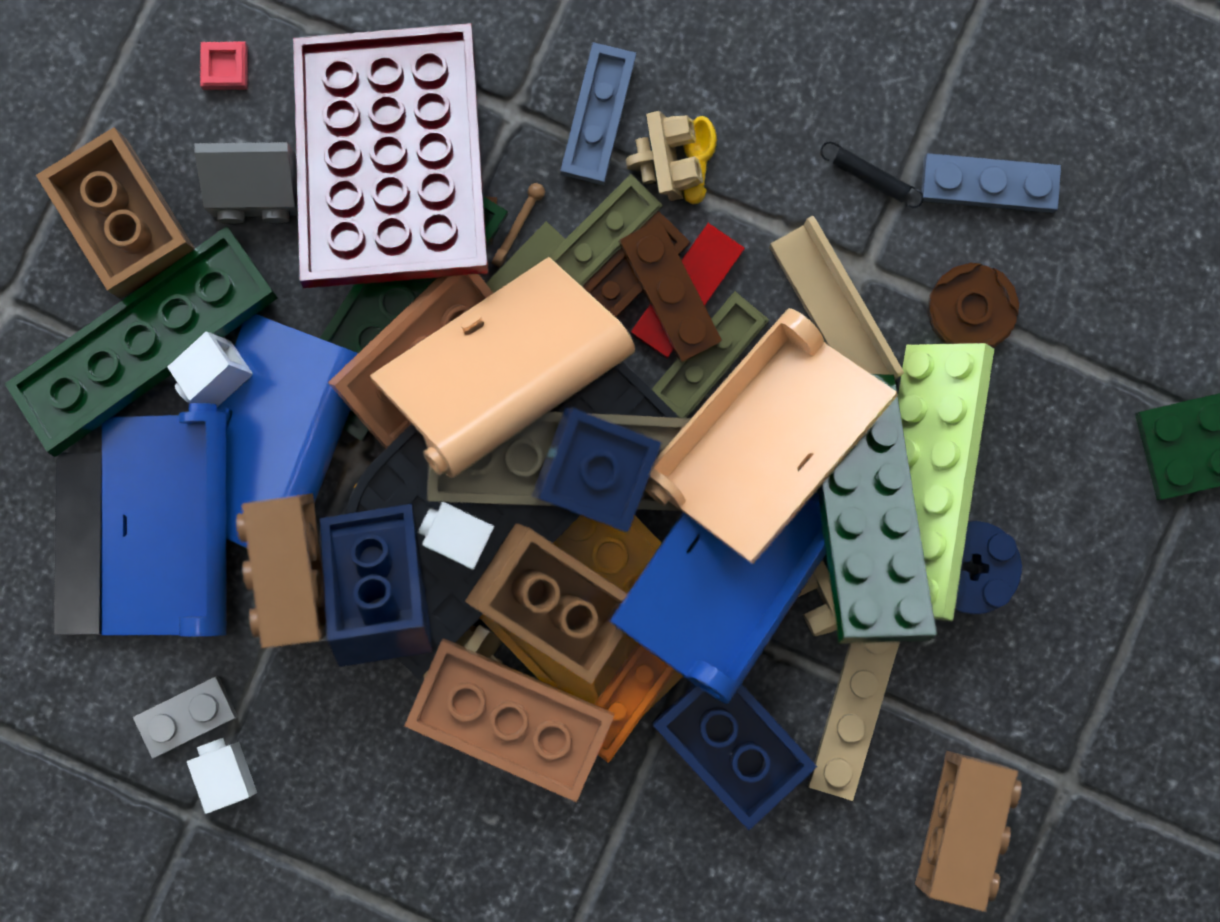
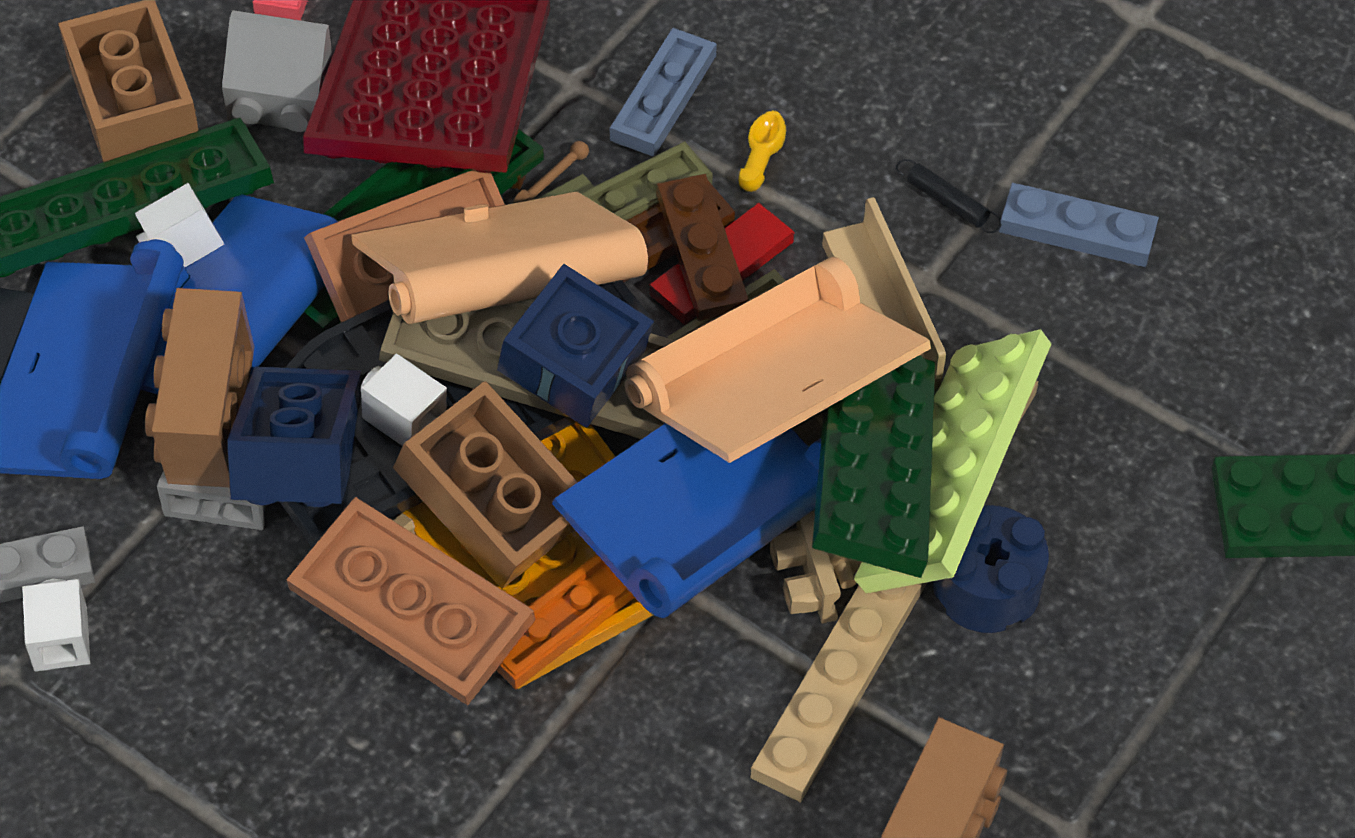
camera: 10 degrees right, 30 degrees down
(671, 173) = (721, 133): tan hips -> none
(735, 750) = (670, 695): dark blue brick -> none
(973, 306) = (1059, 319): reddish brown tile -> none

